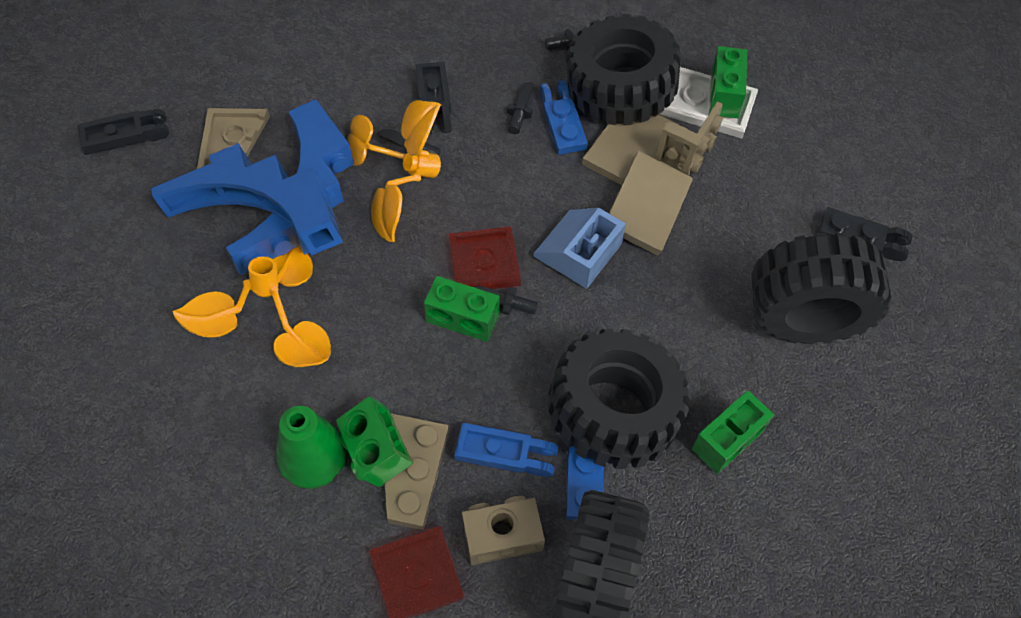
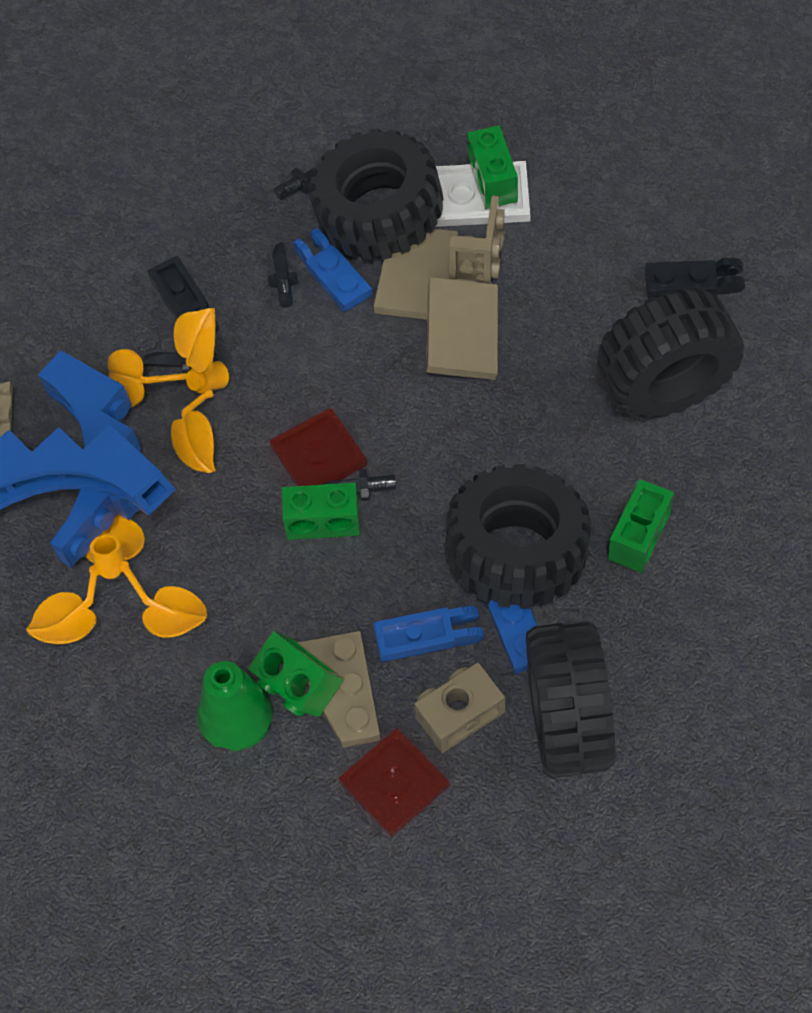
camera: 15 degrees left, 0 degrees up
(582, 244) = (413, 397): medium blue slope -> none

